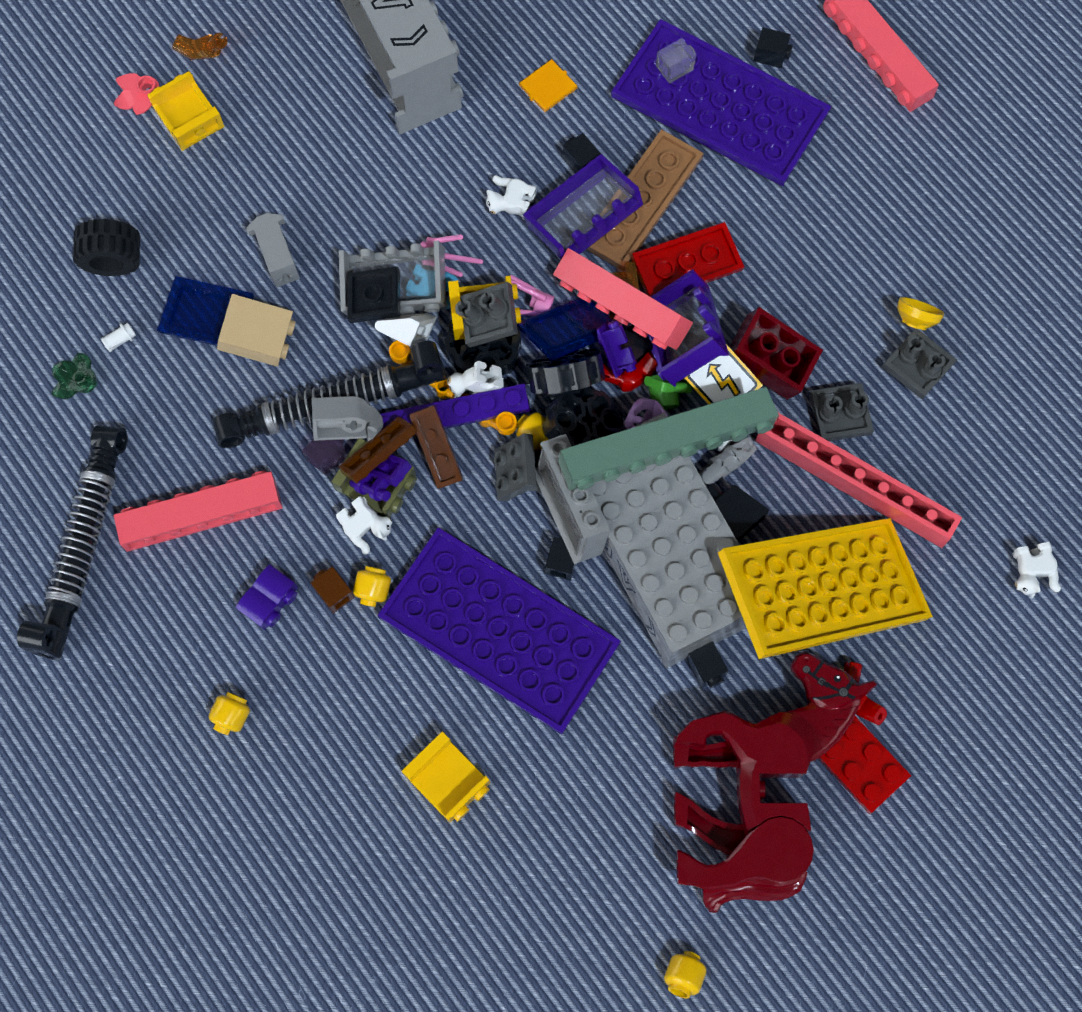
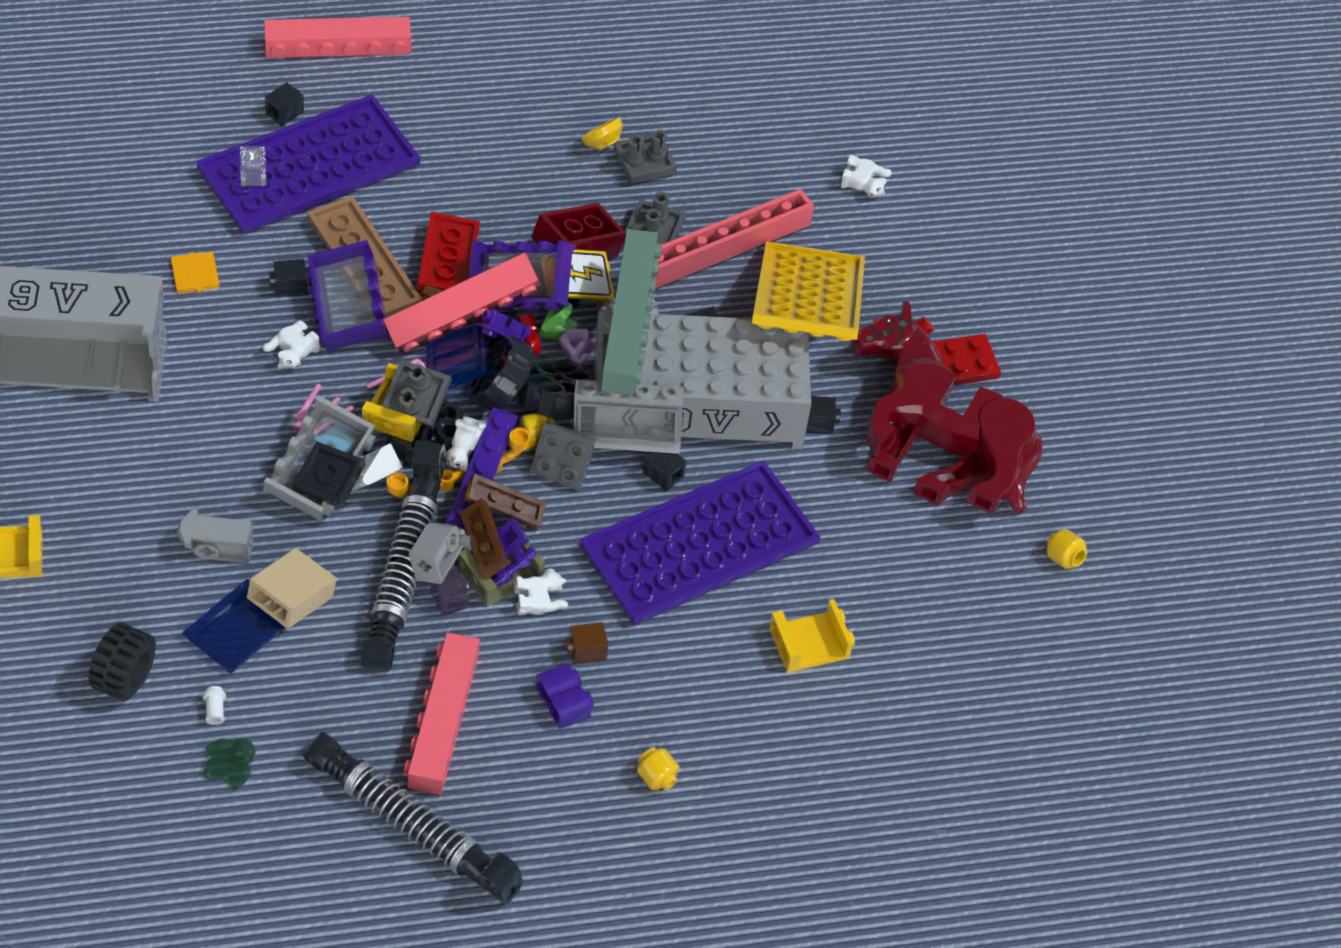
camera: 70 degrees left, 20 degrees down
(371, 586) = (603, 609): yellow head -> none

